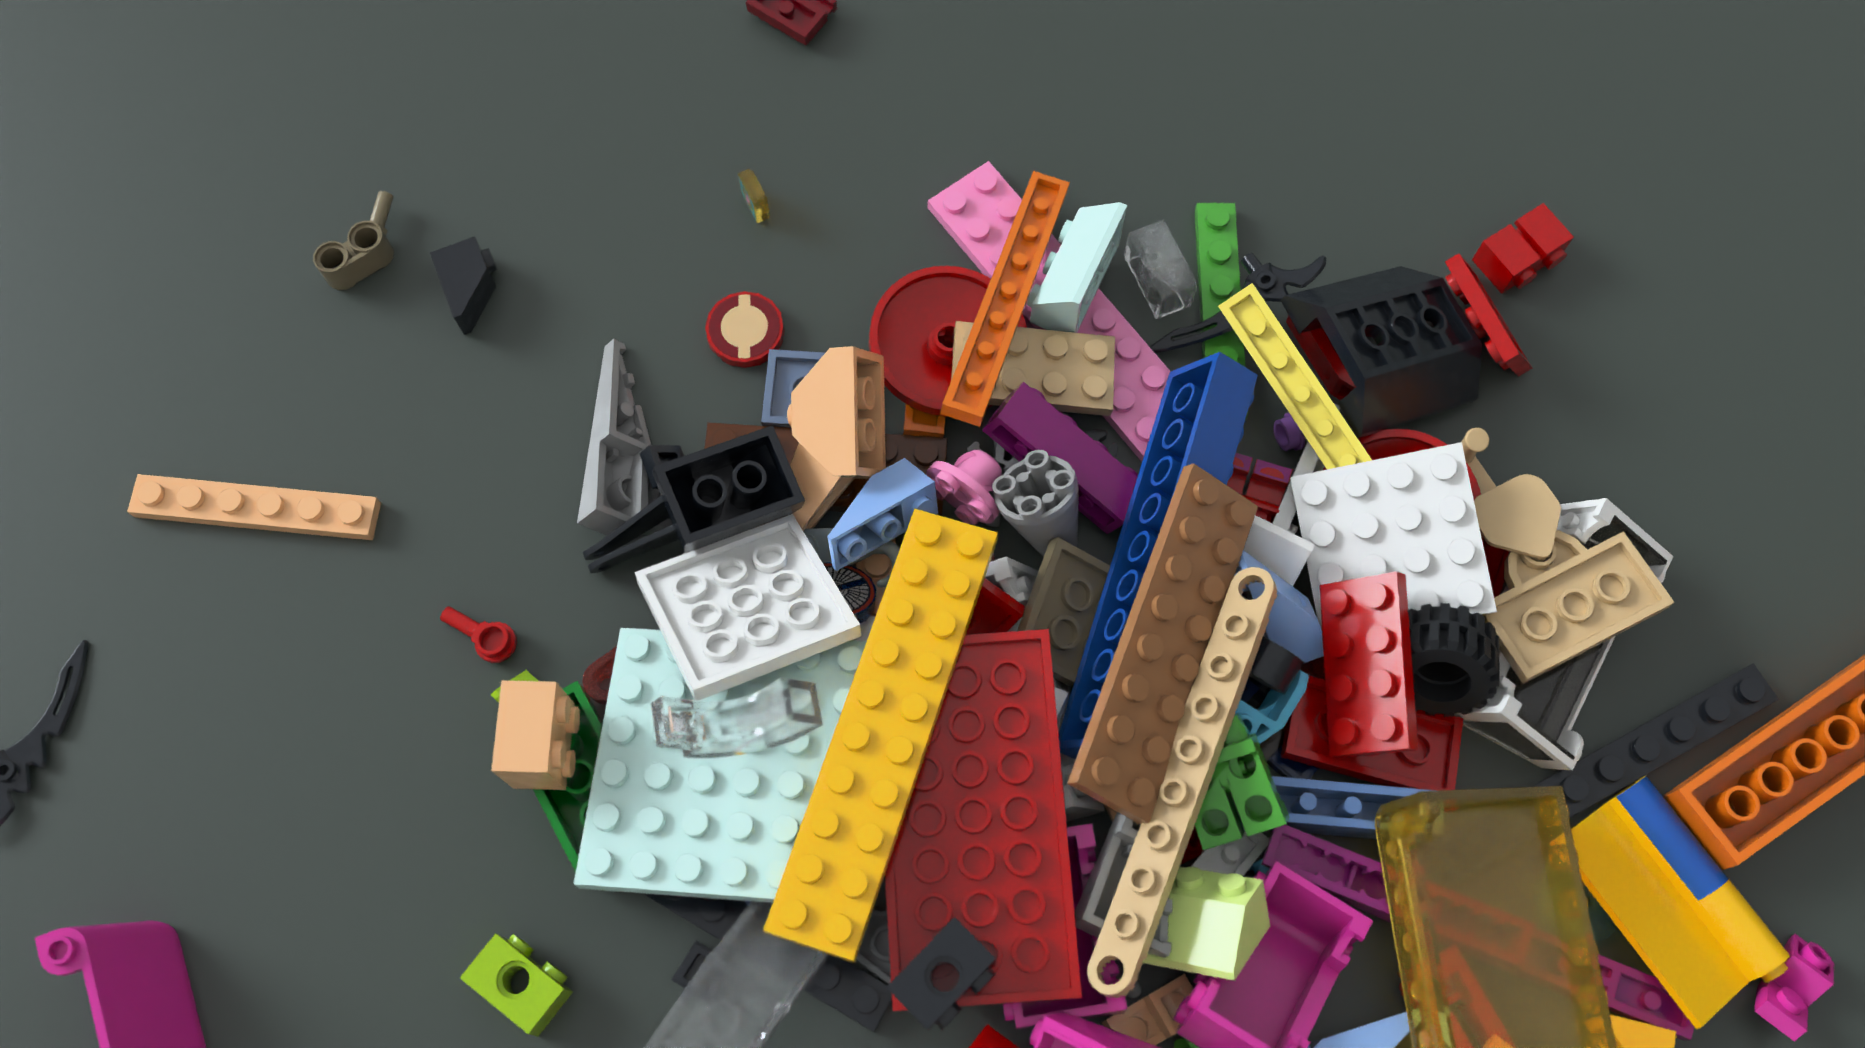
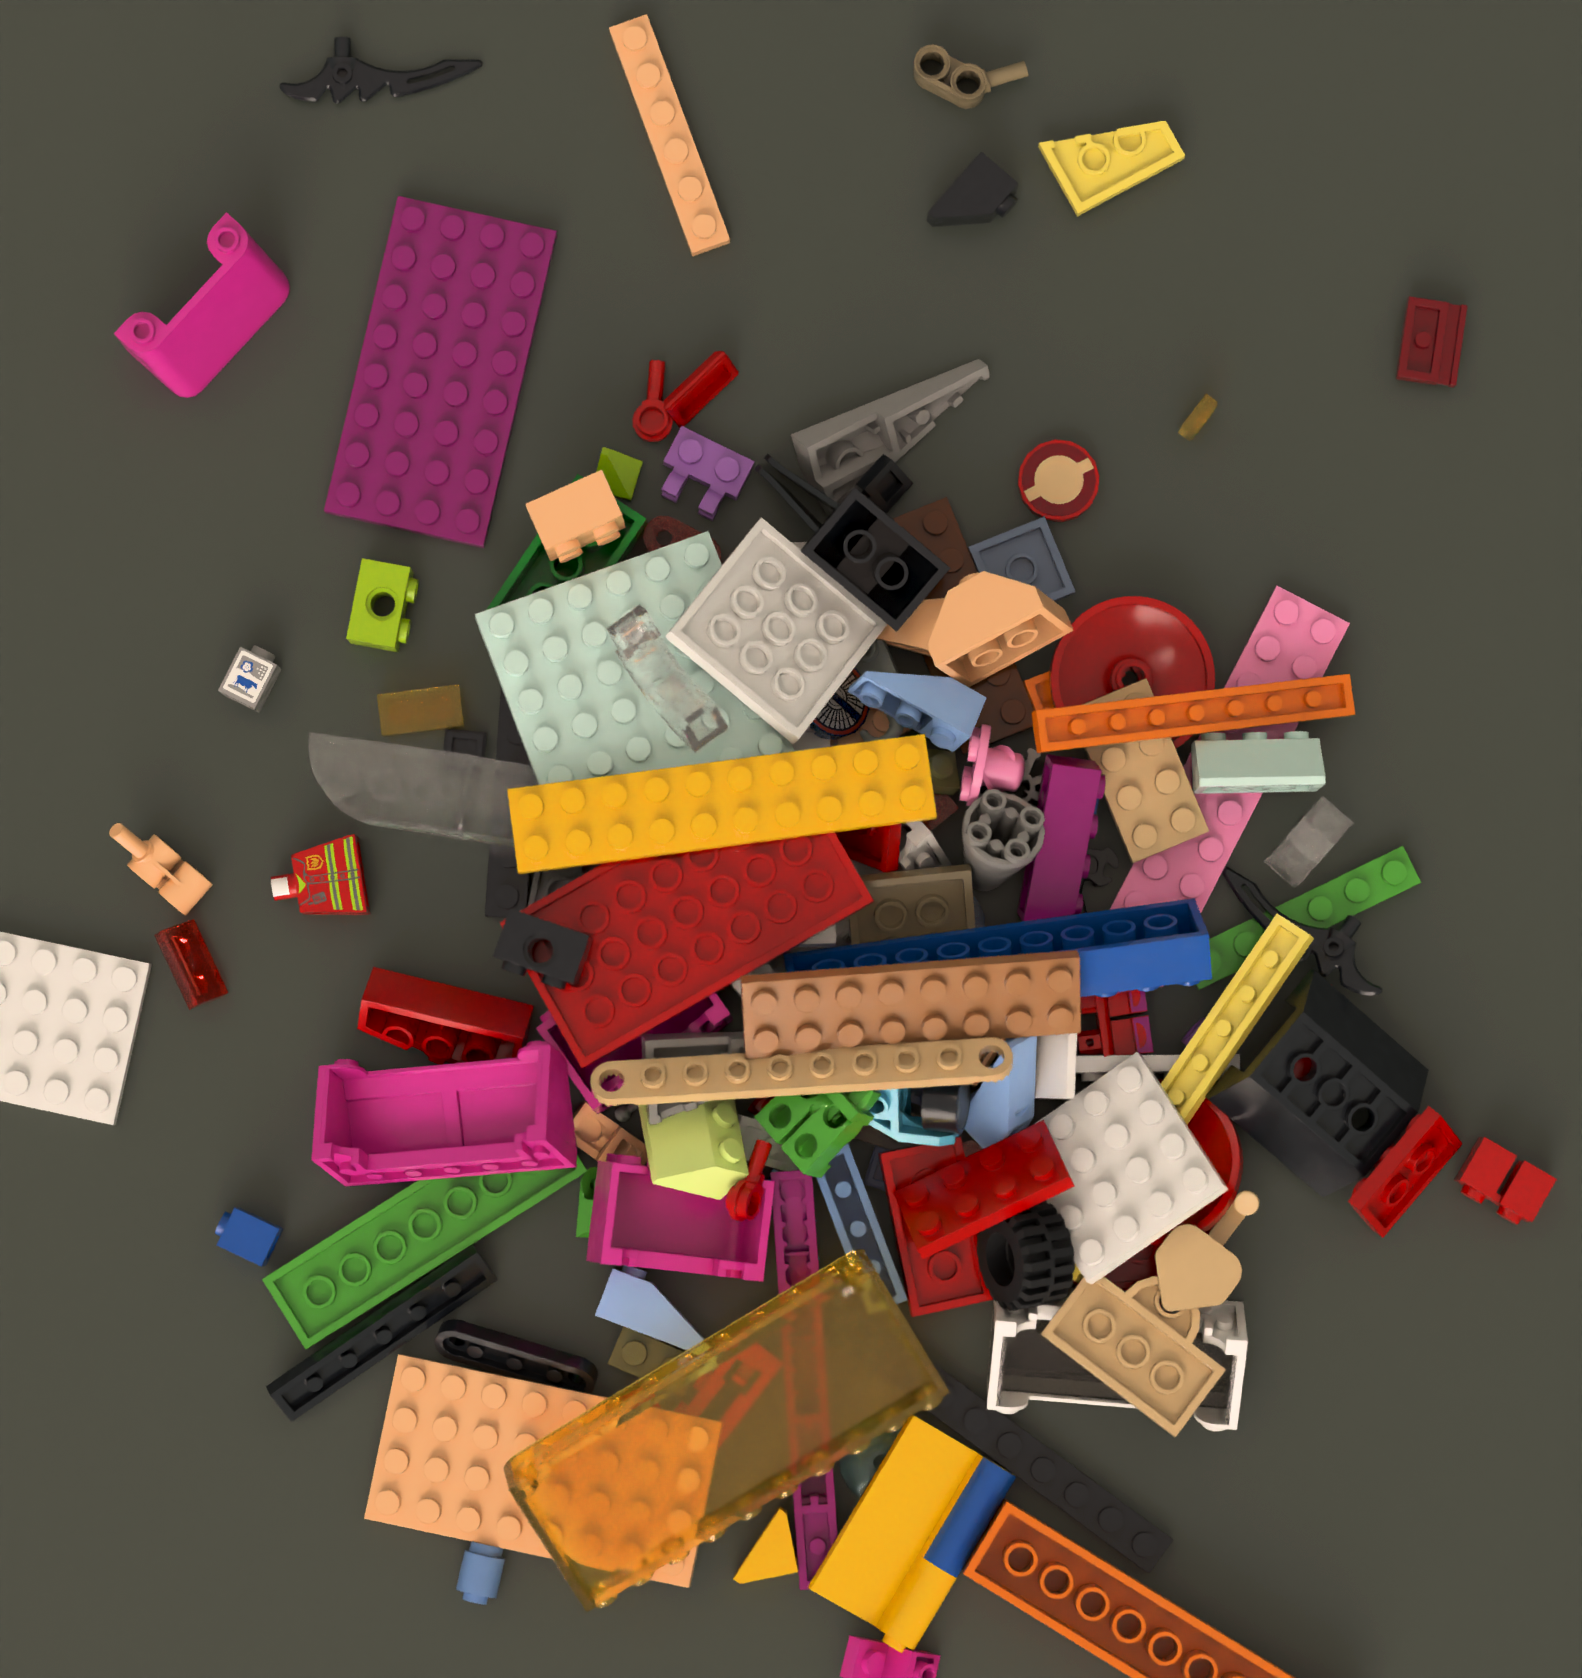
camera: 65 degrees right, 15 degrees up
(336, 819) = (440, 372): none -> magenta plate
(490, 584) = (700, 388): none -> red tile
(505, 170) = (1111, 162): none -> light yellow wing
(561, 613) = (708, 464): none -> medium lavender plate
(640, 996) = (420, 710): none -> clear yellow plate
(1283, 895) = (746, 1196): none -> red plate

